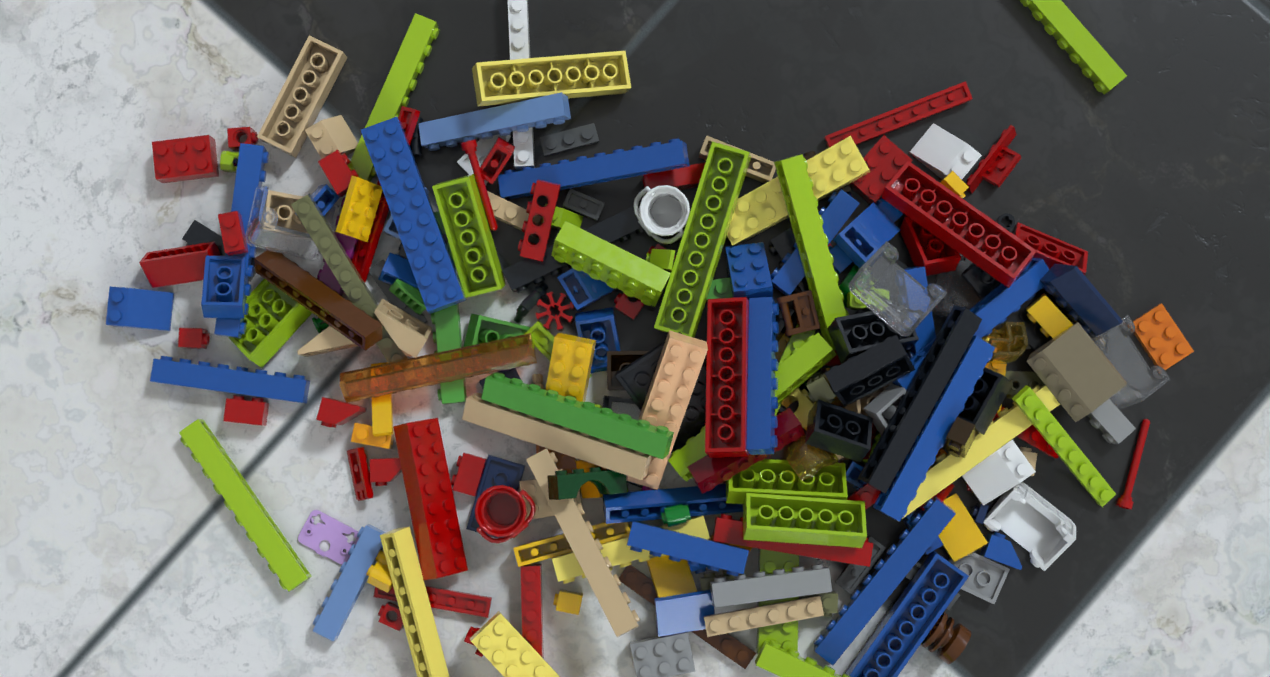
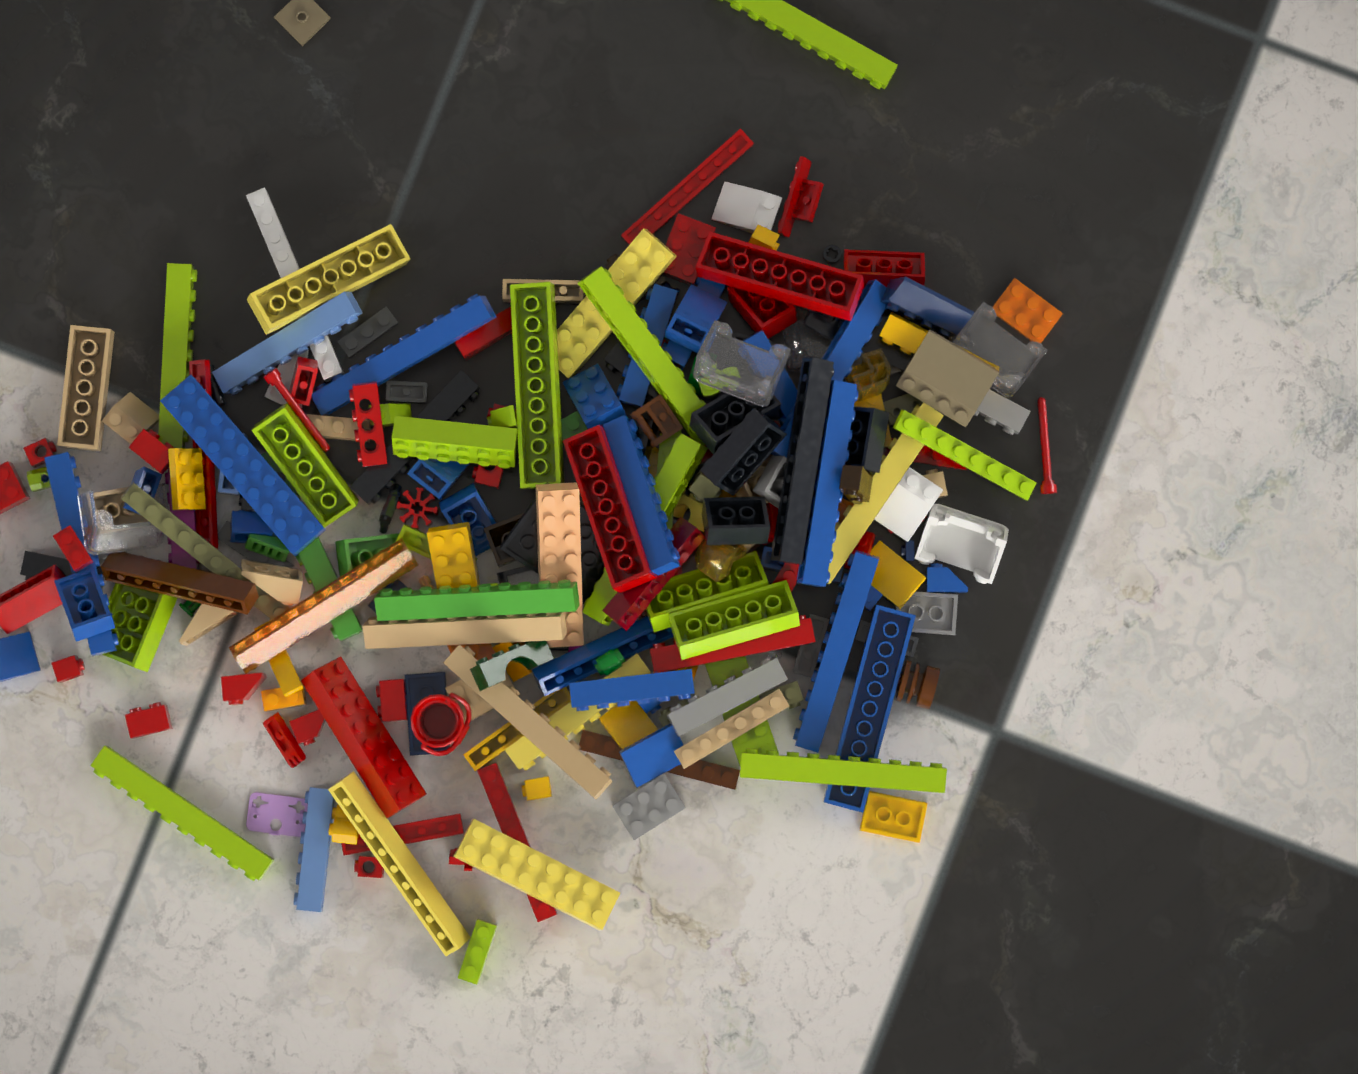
camera: 20 degrees left, 0 degrees up
(229, 380) = (121, 696): blue brick -> none
(662, 212) = (487, 371): white piece -> none

